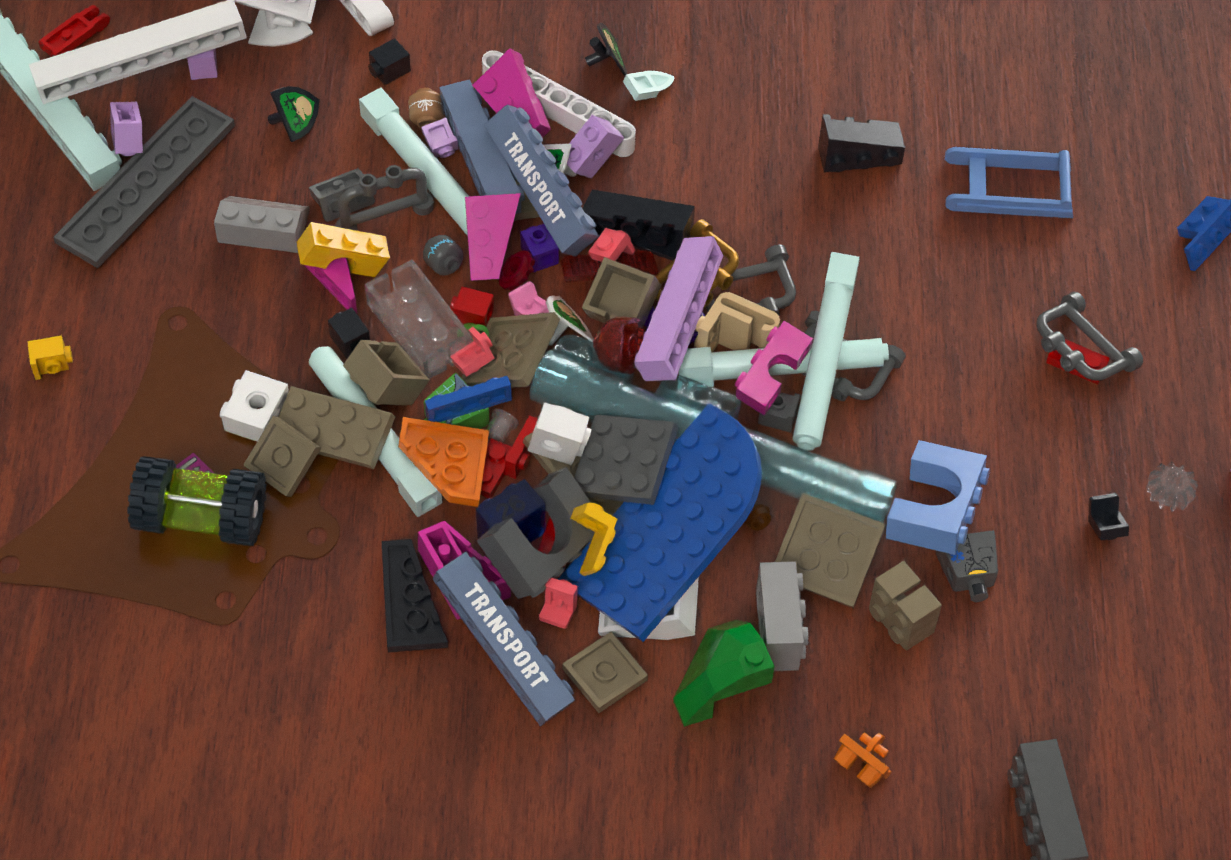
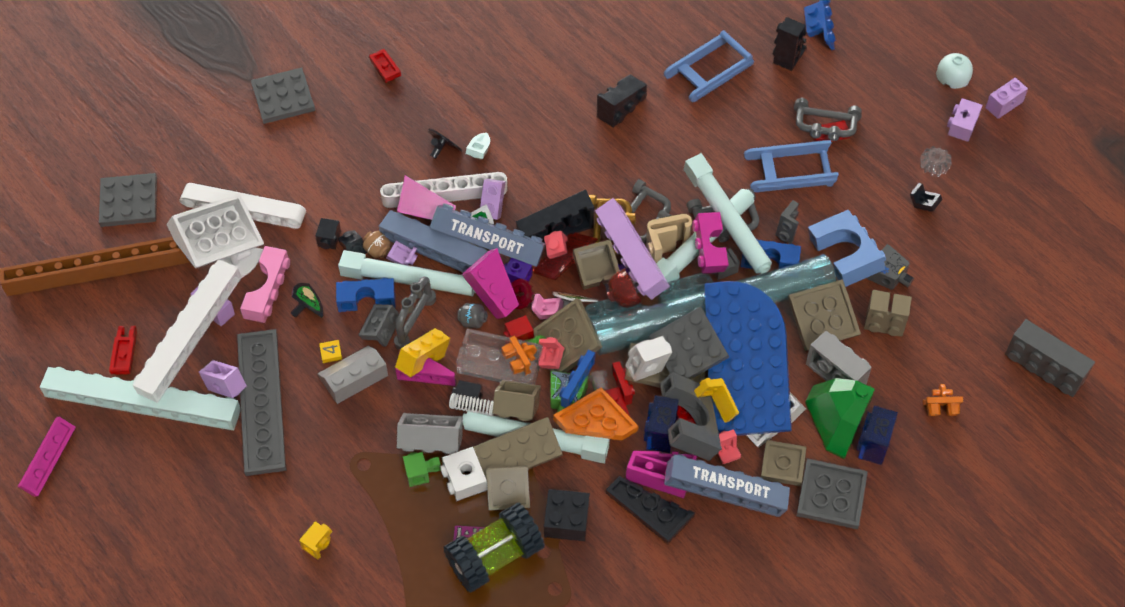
camera: 40 degrees left, 0 degrees up
(218, 365) = (418, 468): none -> bright green brick
(247, 81) = (258, 304): none -> bright pink arch
(263, 336) = (429, 433): none -> light grey brick
(266, 184) = (330, 351): none -> yellow tile
(312, 533) = (566, 515): none -> black brick
(317, 330) = (454, 399): none -> white piece
(343, 139) = (351, 292): none -> blue arch
(402, 87) = (352, 242): none -> black bracket
(432, 326) = (522, 362): none -> orange hips
(622, 749) = (832, 493): none -> dark grey plate
(738, 726) = (876, 434): none -> clear blue brick
(861, 450) = (782, 253): none -> blue arch
(900, 416) = (787, 224): none -> dark grey bracket
(966, 327) = (771, 182): none -> medium blue piece
(1129, 220) = (789, 43): none -> black wedge

